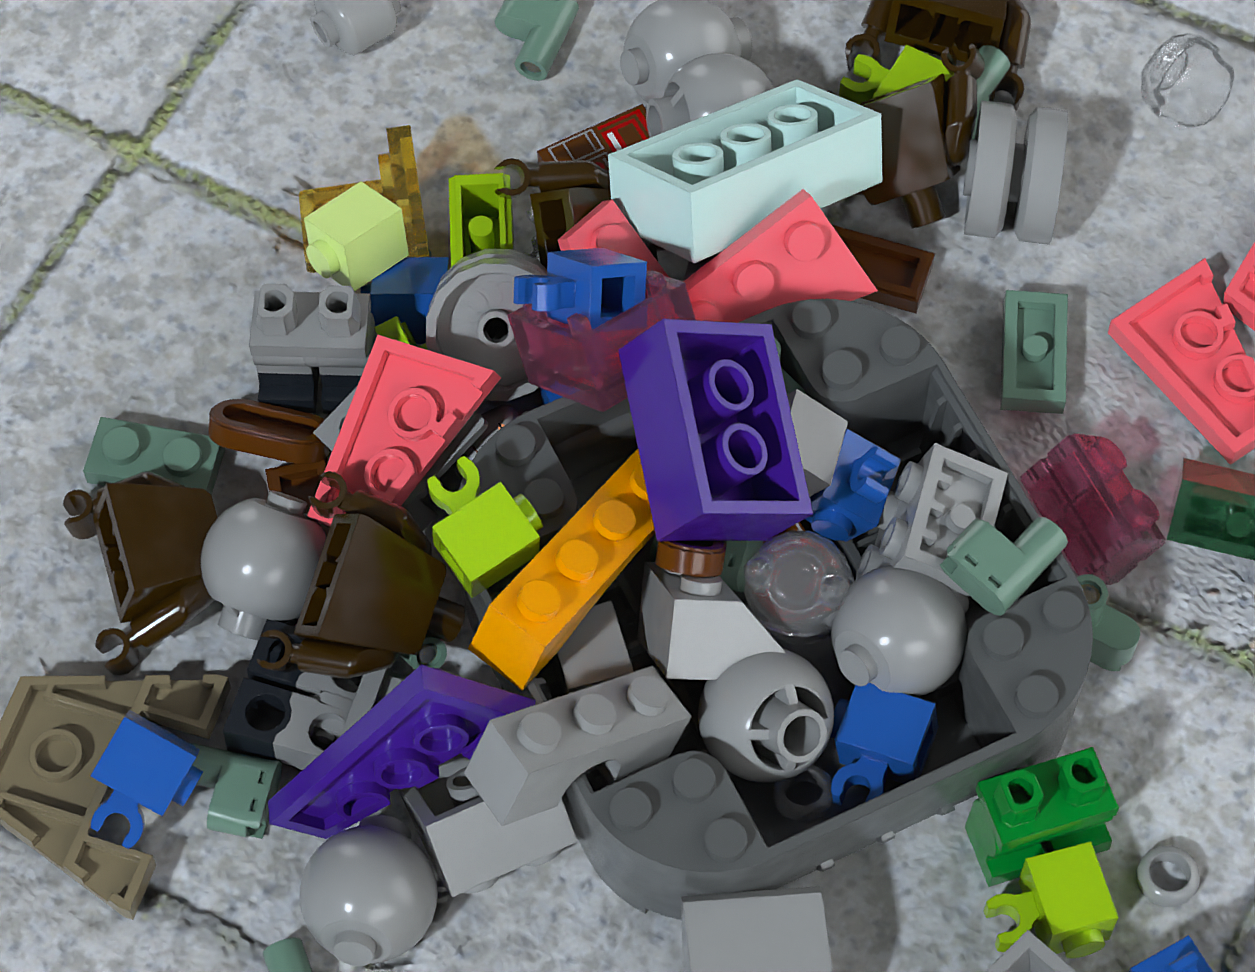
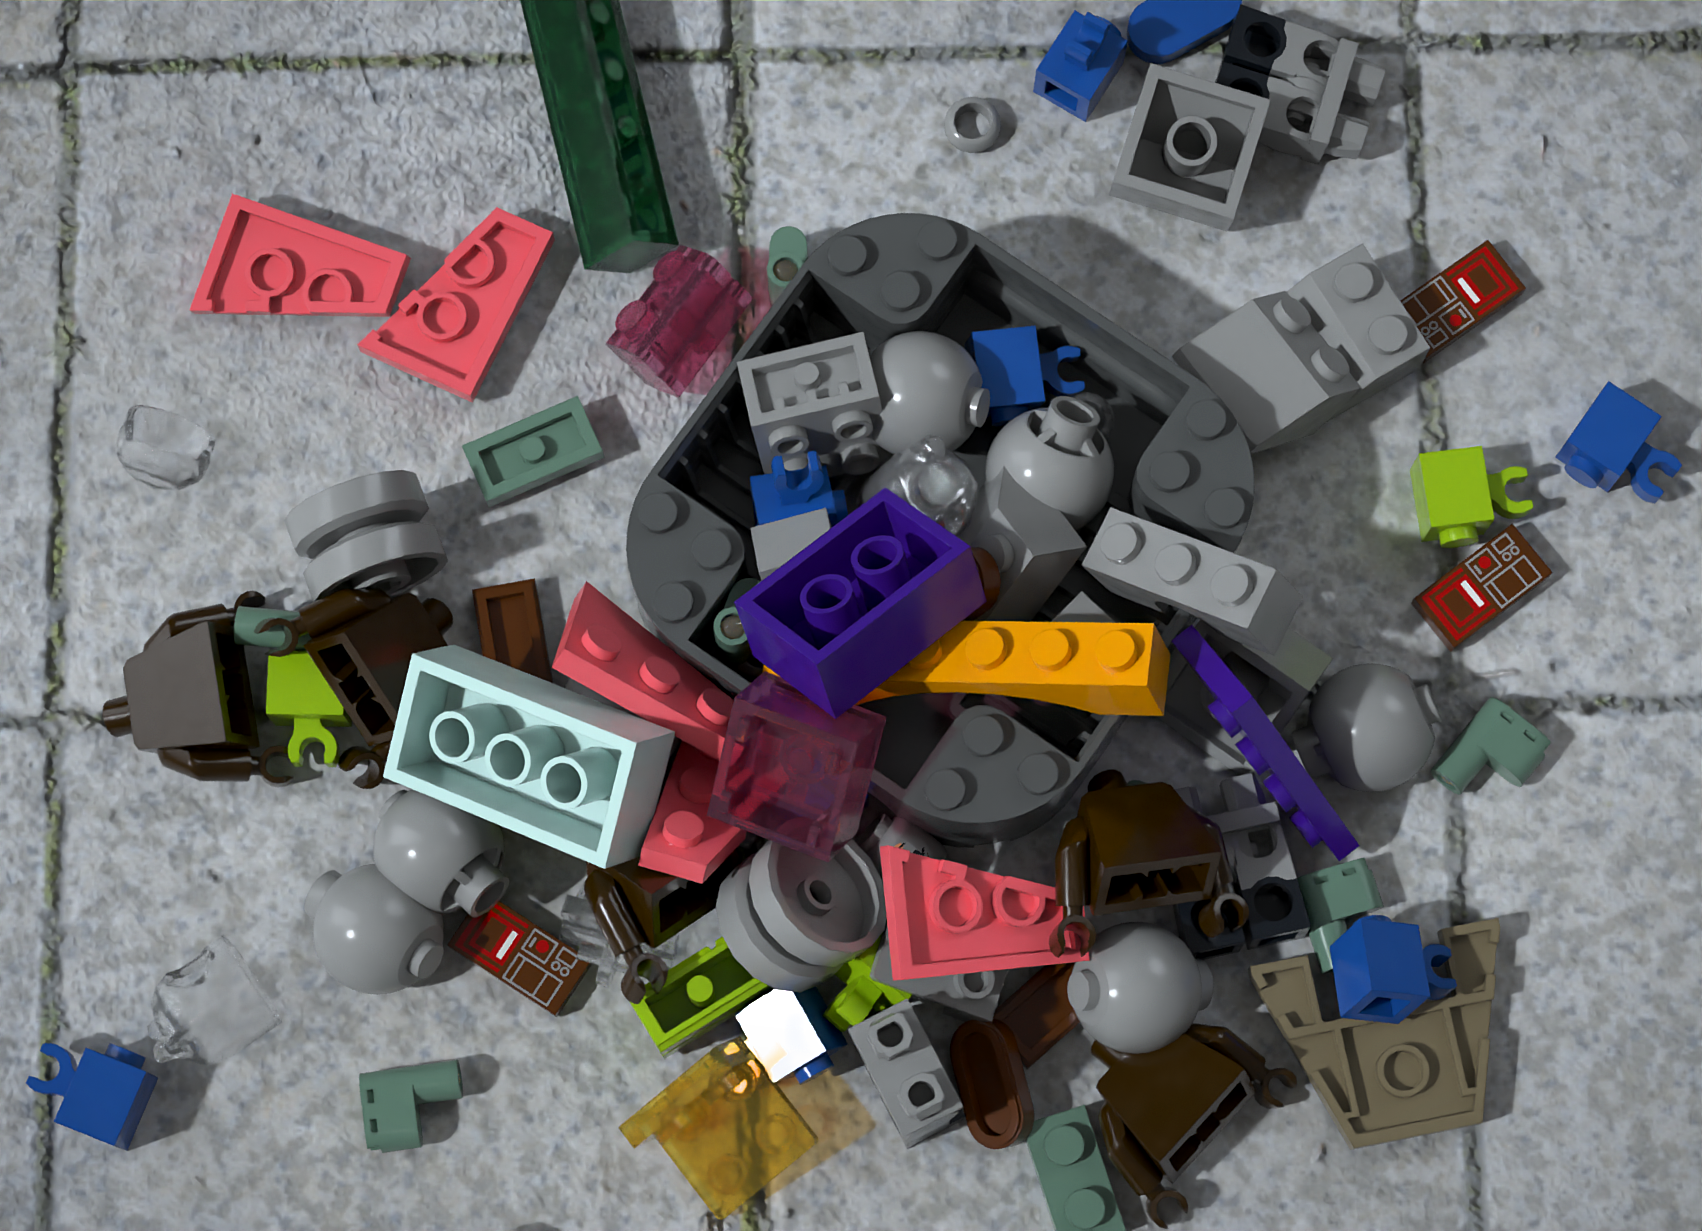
camera: 120 degrees left, 15 degrees up
(356, 236) = (780, 1095): yellowish green brick -> none
(483, 533) = (1060, 752): lime brick -> none
(584, 282) = (777, 788): blue brick -> none
(994, 567) = (848, 313): sand green piece -> none
(1046, 802) = (997, 212): green hips -> none
(1062, 900) = (1052, 187): lime brick -> none

